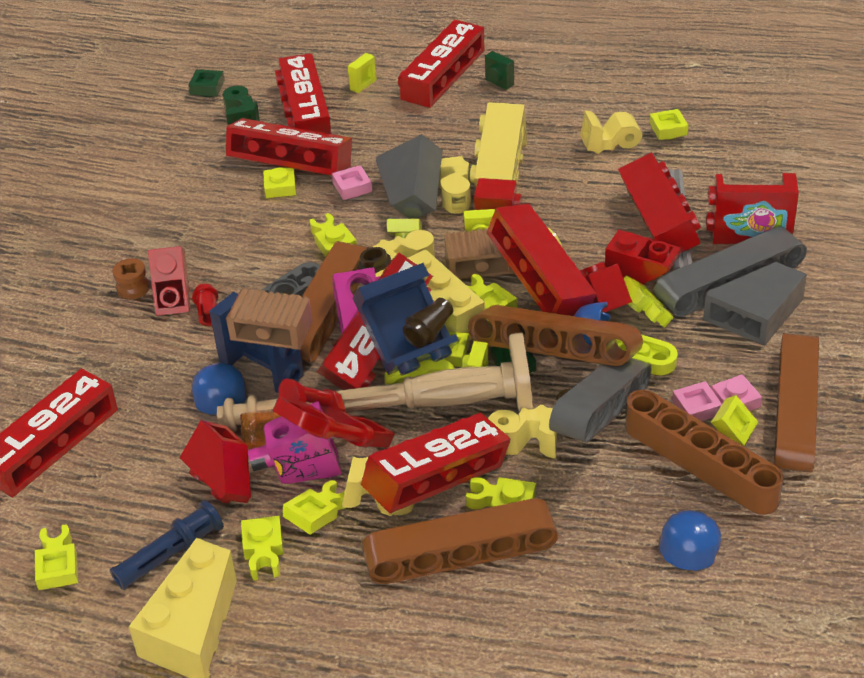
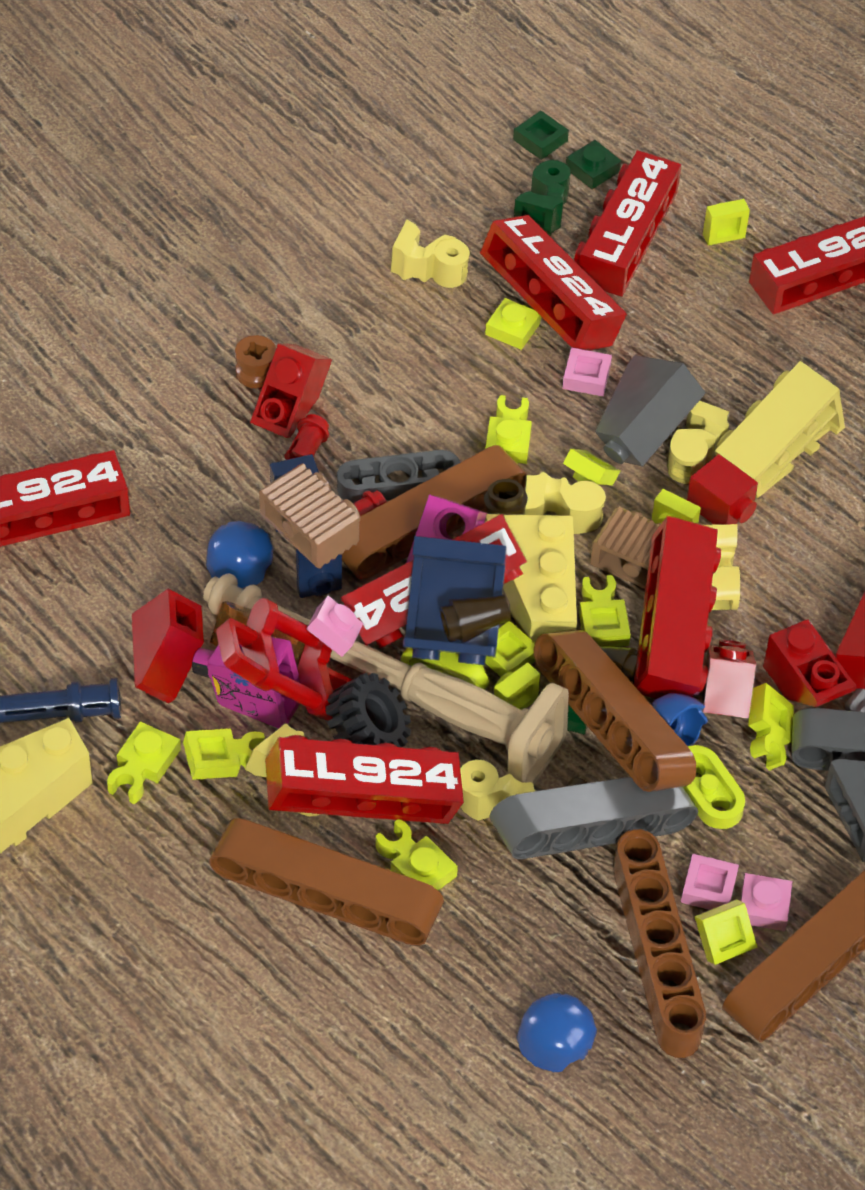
camera: 30 degrees right, 10 degrees up
(205, 170) = (442, 259): none -> light yellow leg
(254, 81) = (593, 164): none -> dark green plate
(335, 381) = (335, 625): none -> bright pink plate
(397, 421) = (368, 712): none -> black tyre

